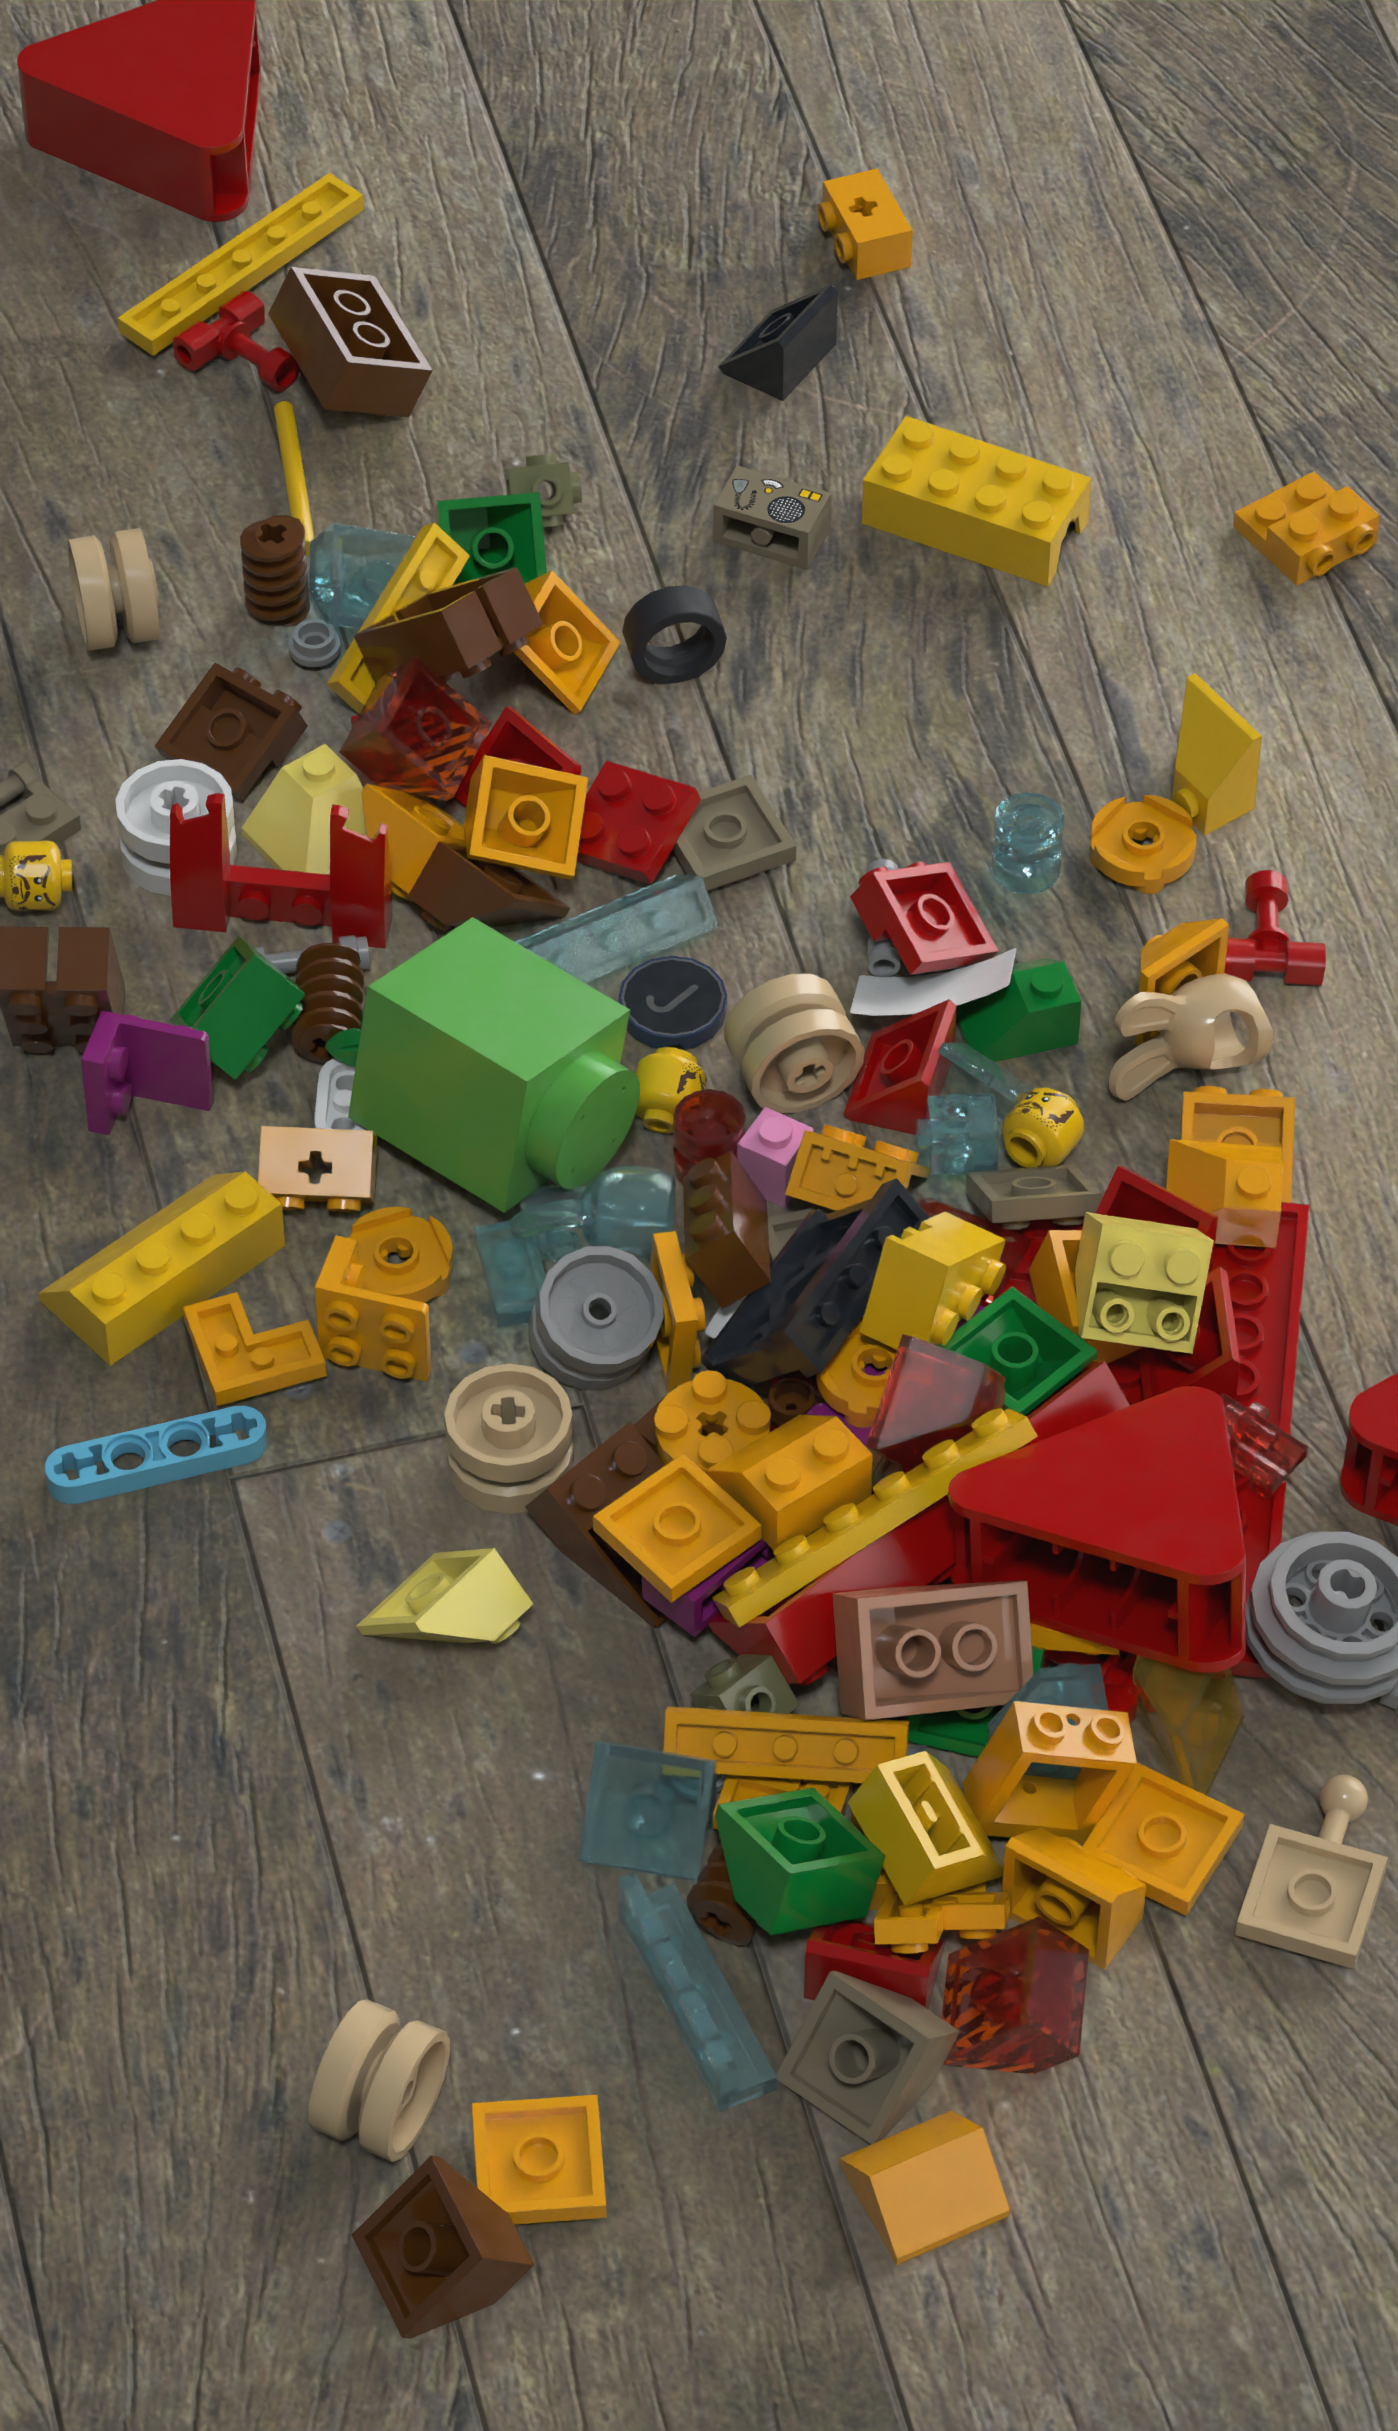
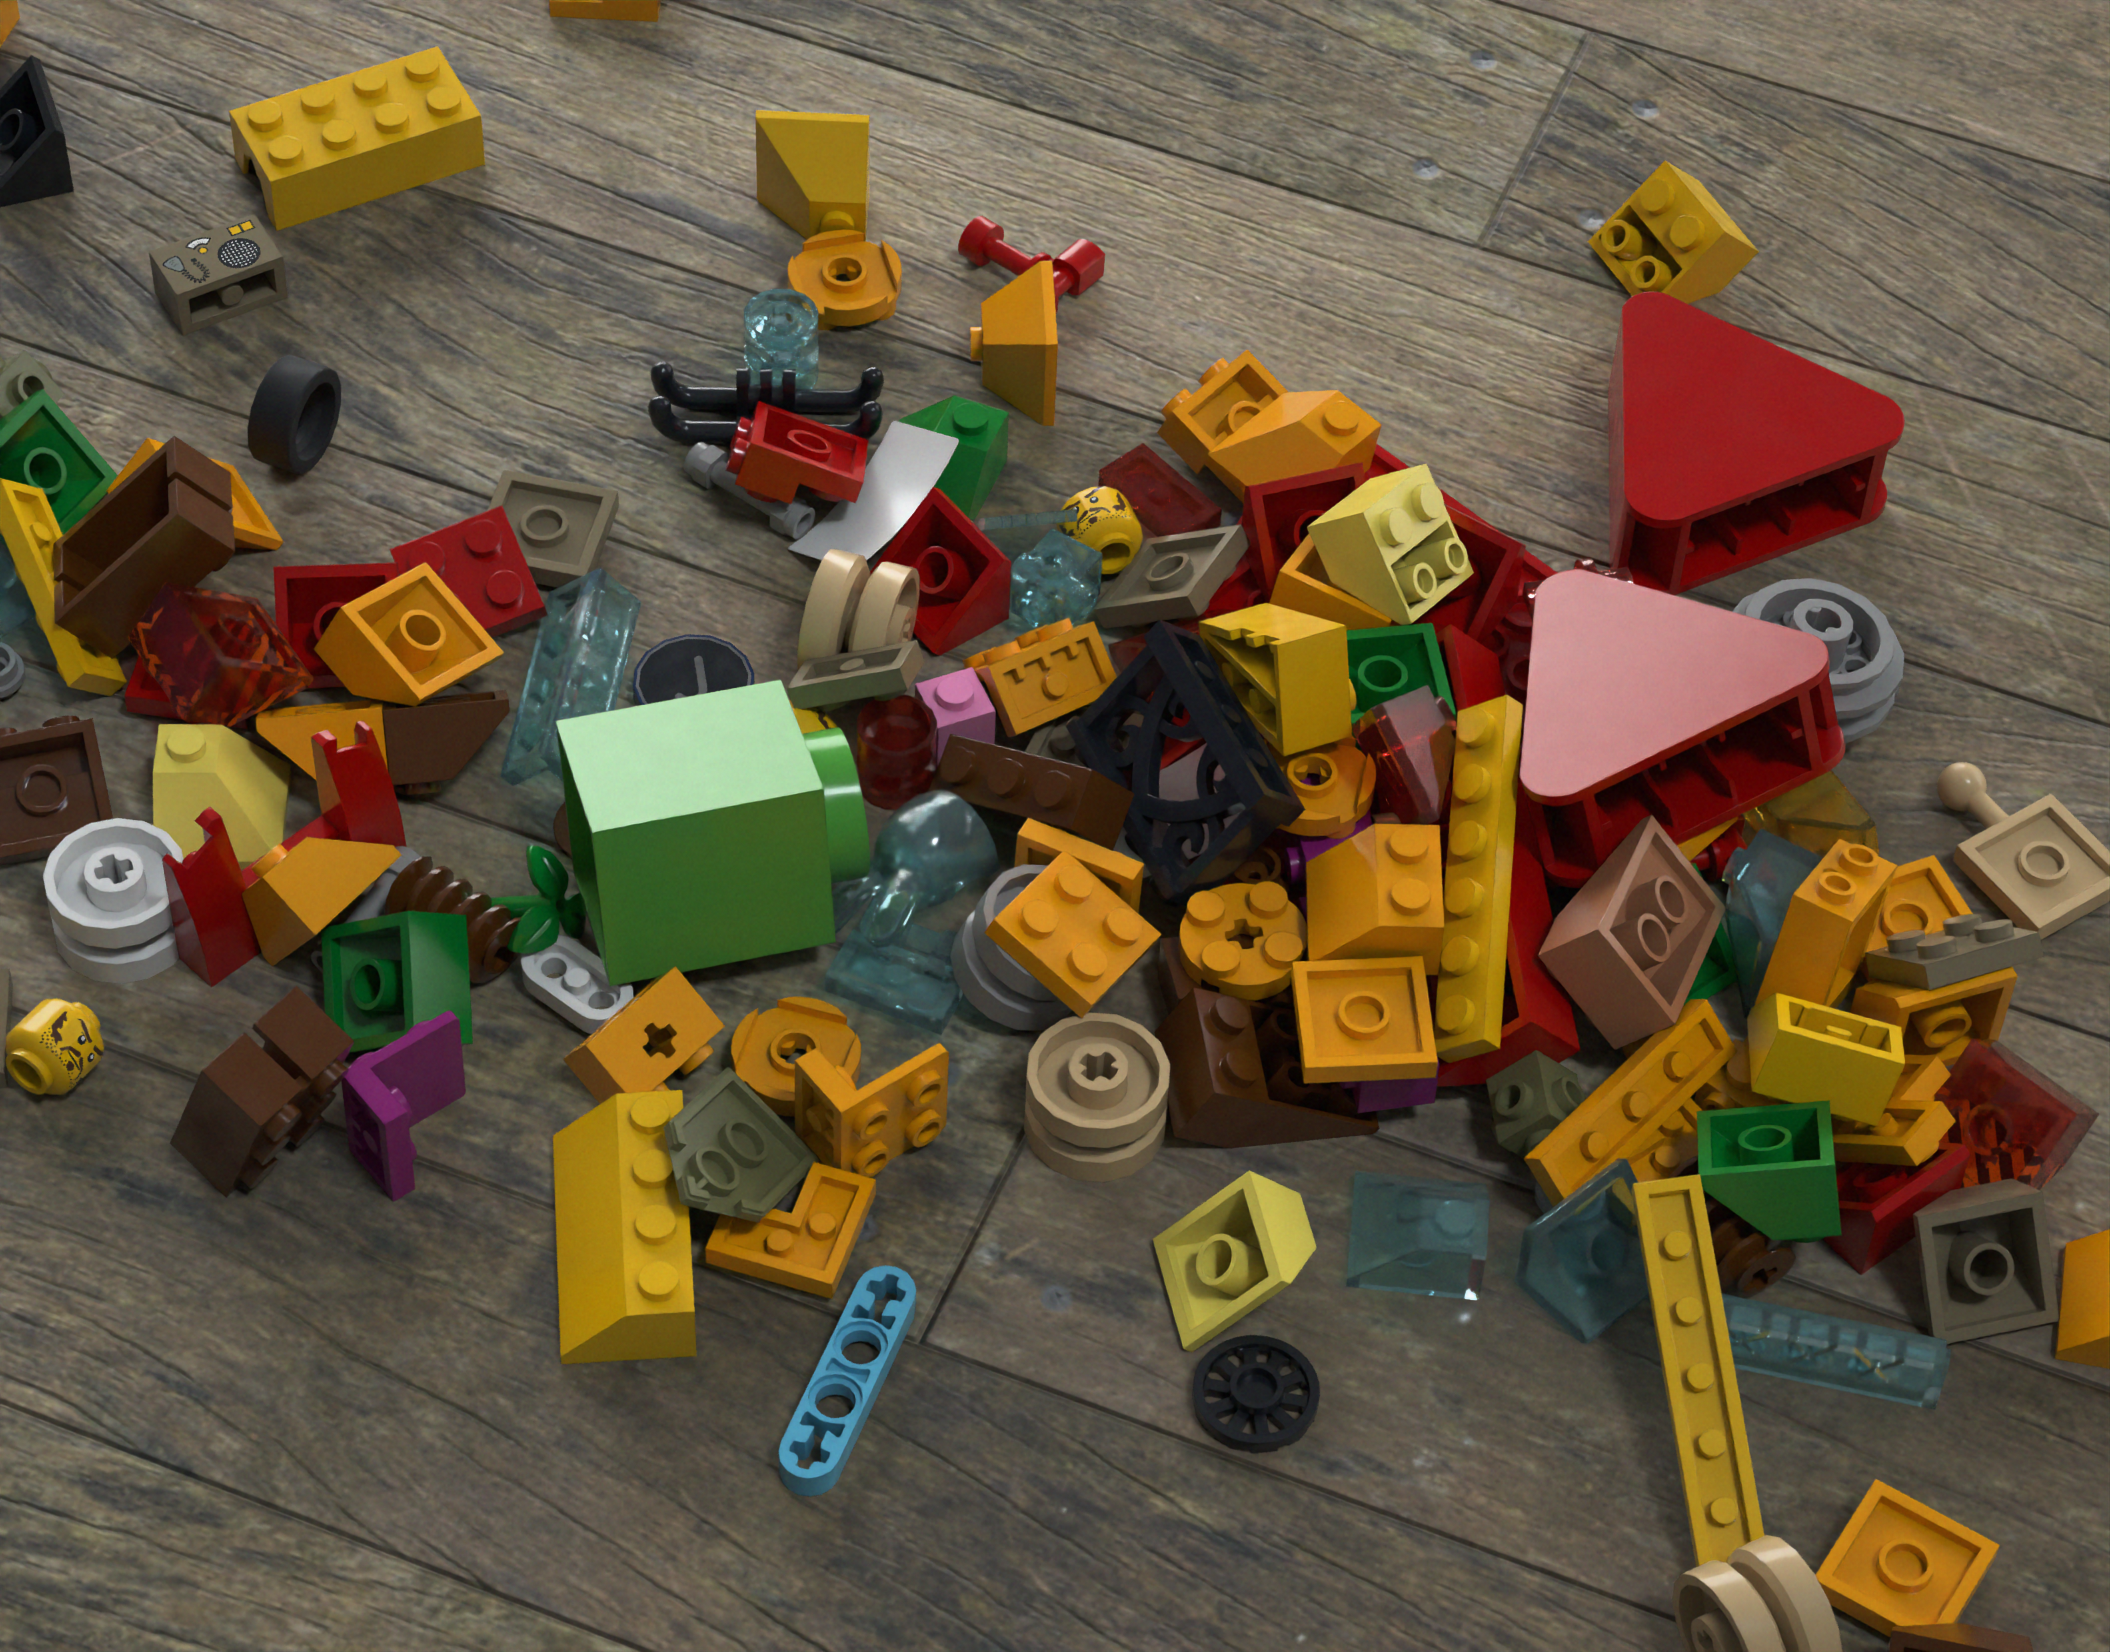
camera: 55 degrees left, 0 degrees up
(257, 1263) = (734, 1151): none -> olive tile
(260, 907) = (308, 888): none -> light orange slope
(354, 1689) = (1255, 1393): none -> black wheel
(569, 1919) = (1697, 1366): none -> yellow plate
(582, 1700) = (1418, 1235): none -> clear light blue slope
(603, 1322) = (1072, 933): none -> light orange plate
(725, 1066) = (839, 678): none -> dark tan plate
(972, 868) = (745, 398): none -> black piece
(1102, 1854) = (1954, 954): none -> dark tan plate
(1121, 1138) = (1159, 494): none -> clear red plate
(1193, 1031) = (1101, 366): tan piece -> none

